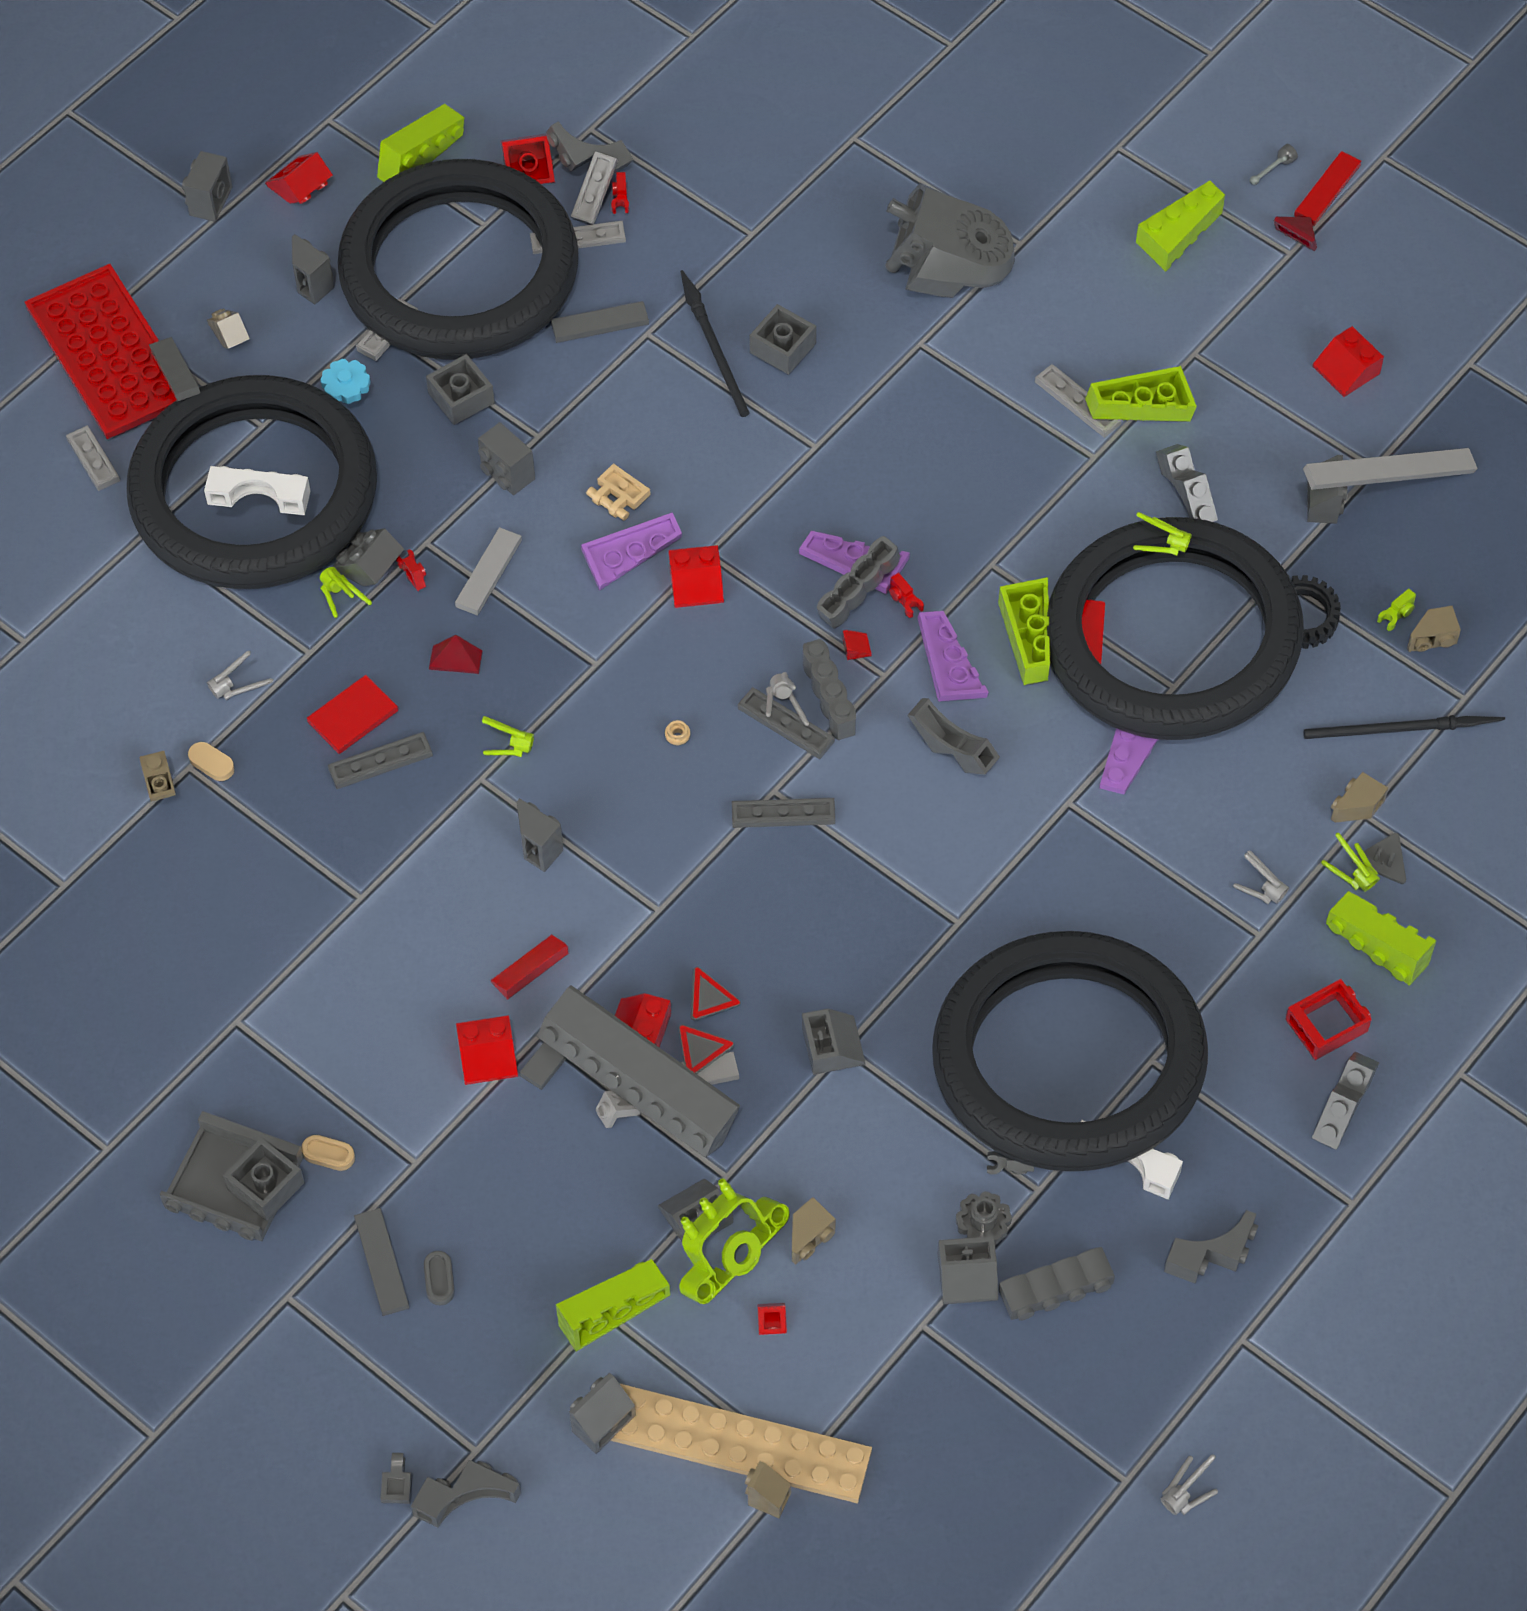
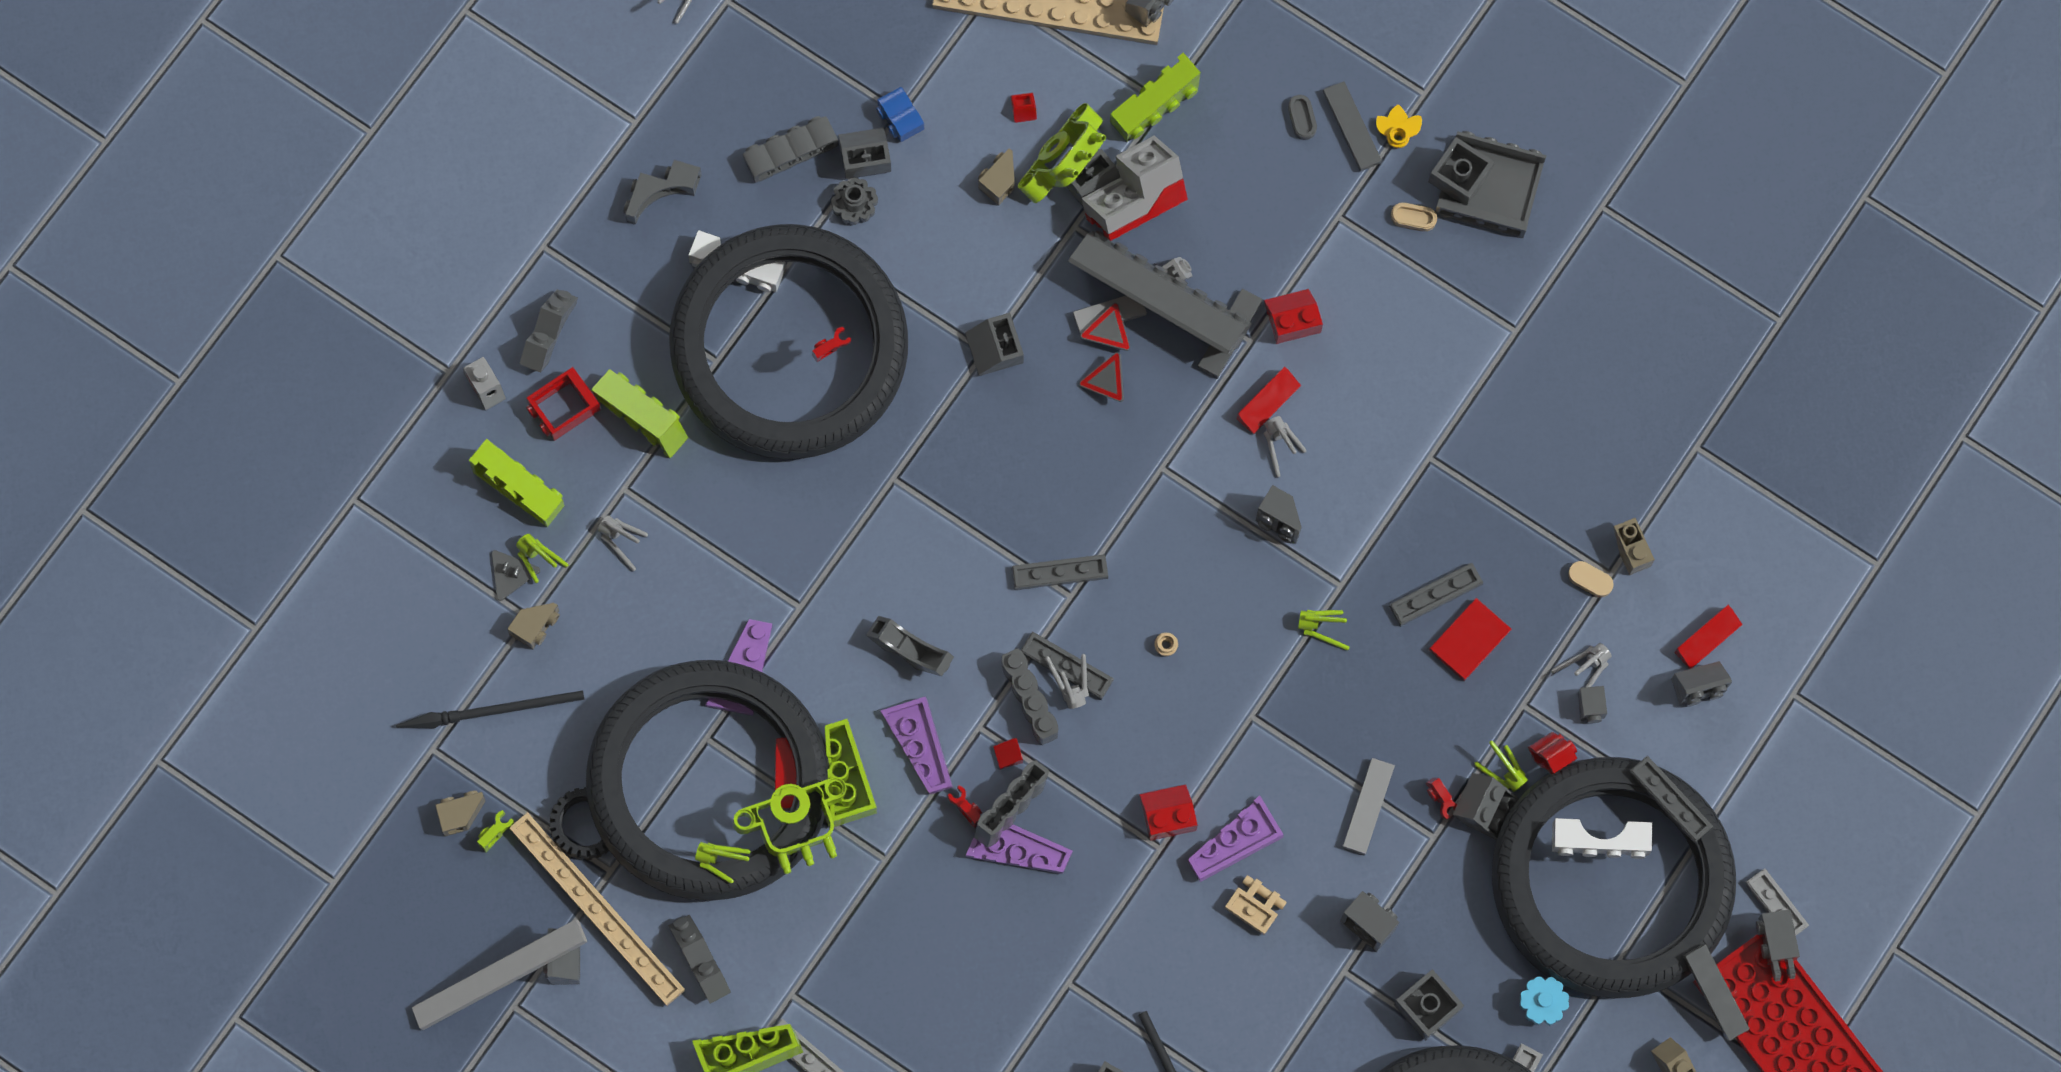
camera: 170 degrees right, 15 degrees up
(100, 412) = (1778, 941): none -> dark grey hinge
(100, 697) = (1708, 637): none -> red slope
(118, 643) = (1701, 683): none -> dark grey slope
(178, 524) = (1670, 799): none -> dark grey tile
(236, 639) = (1592, 704): none -> dark grey brick
(289, 590) = (1553, 752): none -> red brick
(326, 1260) = (1398, 124): none -> yellow plate
(456, 656) = (1384, 708): dark red slope -> none
(525, 932) = (1278, 429): none -> light grey plant
(646, 1015) = (1165, 349): red slope -> none
(652, 1178) = (1146, 188): none -> light grey piece
(921, 1314) = (900, 114): none -> blue brick
(1027, 1014) = (825, 348): none -> red plate
(1127, 561) = (790, 818): none -> lime piece
(1241, 999) = (641, 411): none -> lime wedge
(1290, 536) = (597, 909): none -> tan plate
(1421, 1042) = (483, 381): none -> light grey torso

